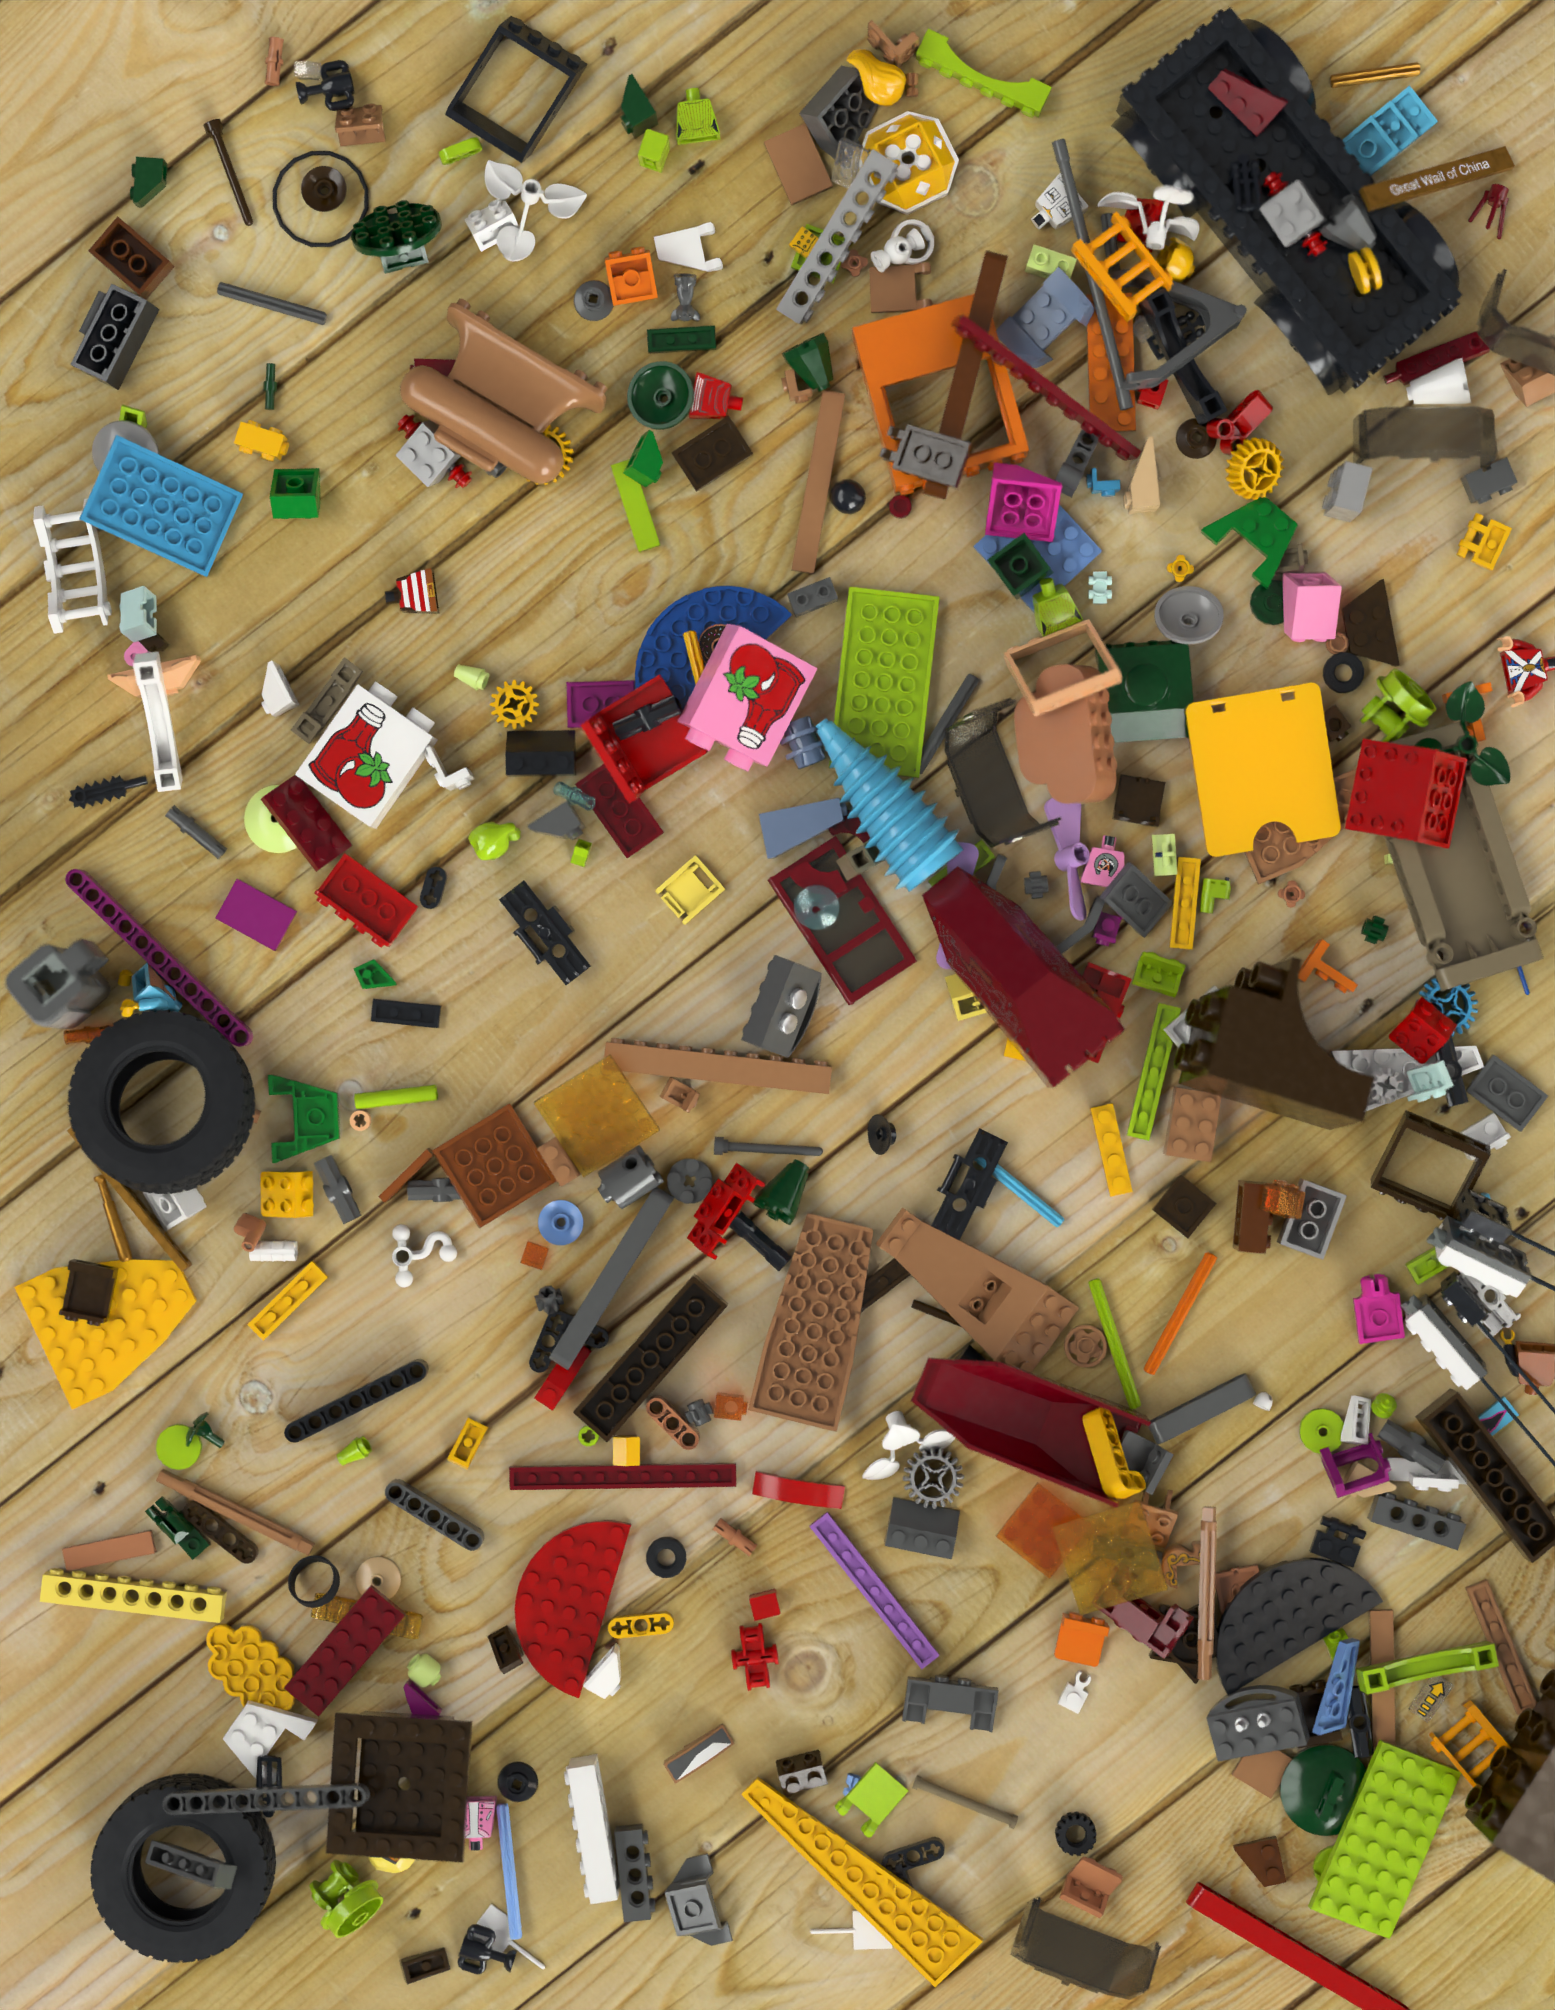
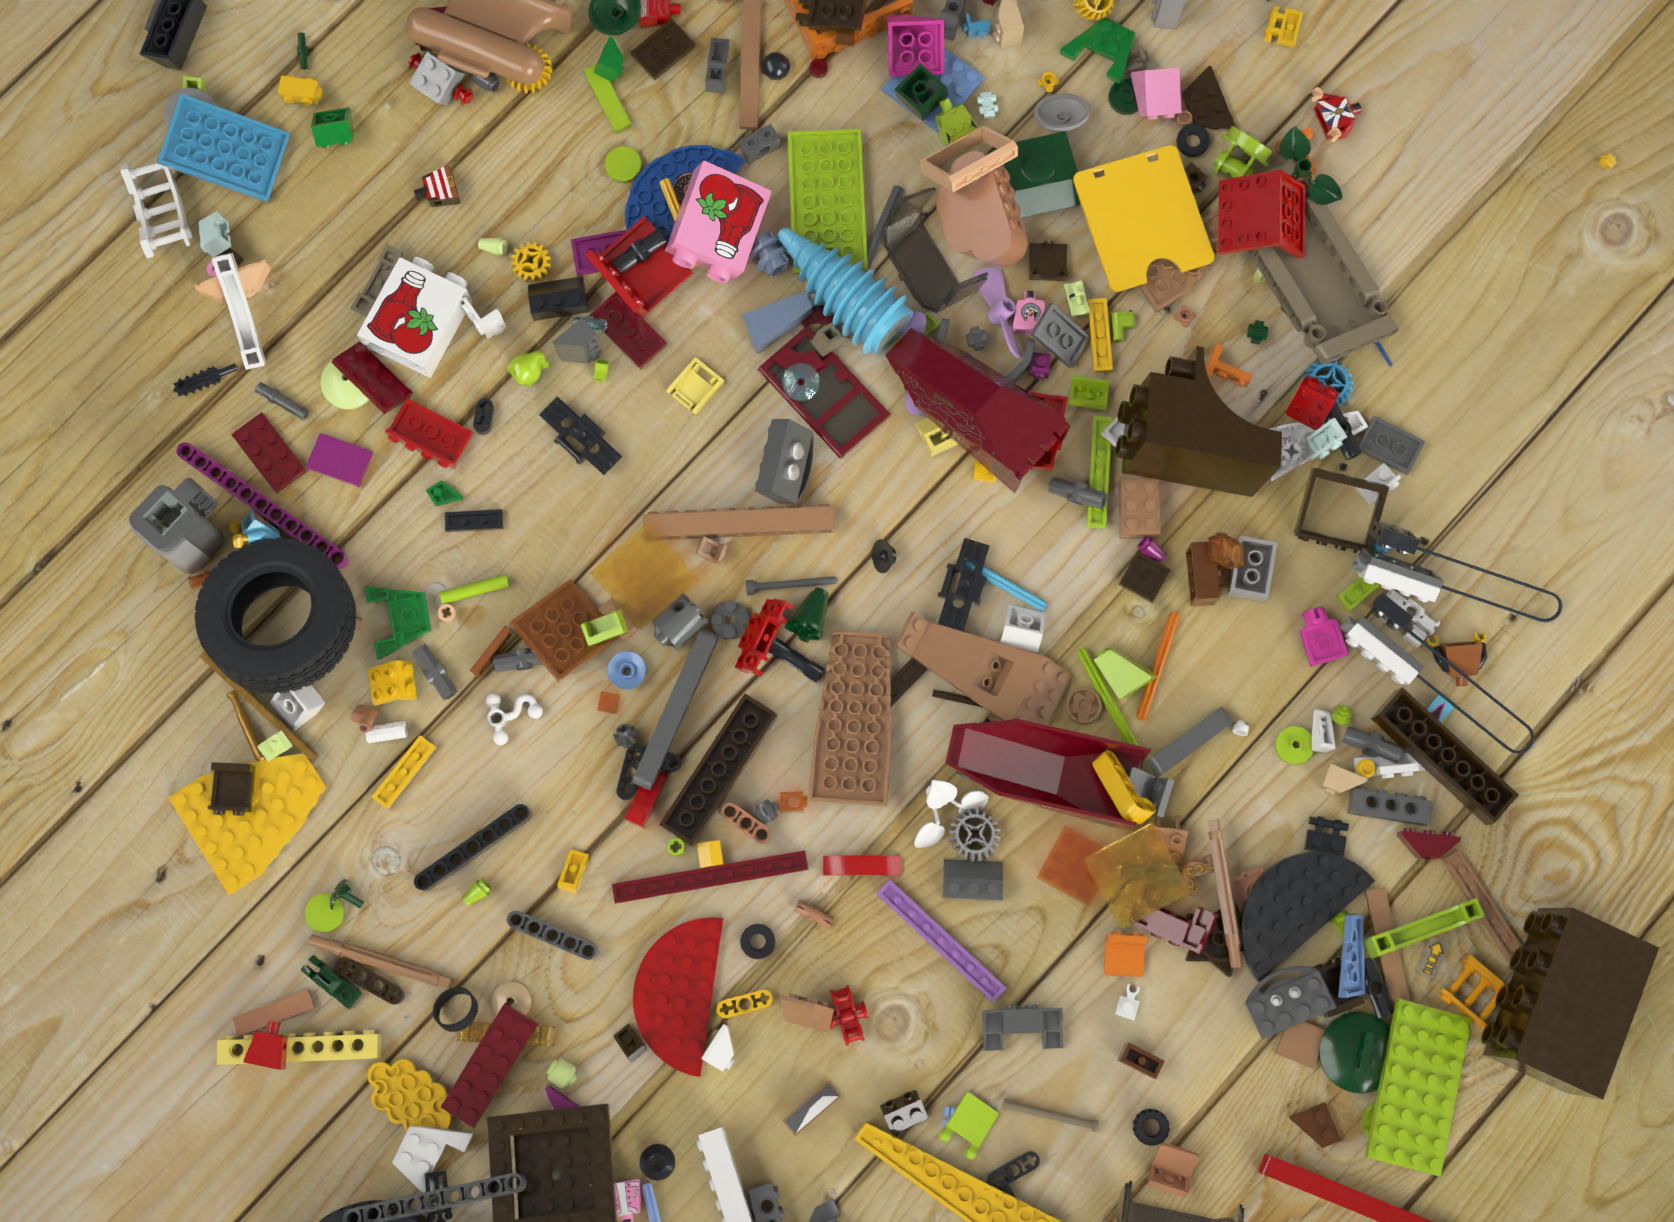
camera: 10 degrees left, 10 degrees down
(99, 1595) = (268, 1048): none -> red torso
(143, 1247) = (274, 745): none -> yellowish green bracket
(174, 892) = (269, 452): none -> dark red plate
(277, 692) = (335, 280): white slope -> none
(541, 1175) = (604, 628): none -> lime panel
(643, 595) = (623, 164): none -> lime tile
(709, 1650) = (806, 1012): none -> medium nougat slope
(764, 1604) = (848, 967): red panel -> none
(776, 485) = (717, 65): none -> dark grey slope
(1031, 1245) = (1023, 628): none -> white slope
(1077, 1761) = (1140, 1060): none -> reddish brown brick
(1111, 1149) = (1076, 541): yellow plate -> none
(1122, 1095) = (1077, 492): none -> dark grey piece
(1137, 1319) = (1123, 672): none -> lime slope
(1197, 1173) = (1151, 548): none -> magenta cone
(1371, 1450) = (1341, 753): magenta panel -> none
(1399, 1473) = (1366, 768): none -> yellow plate
(1453, 1570) = (1427, 844): none -> dark red slope

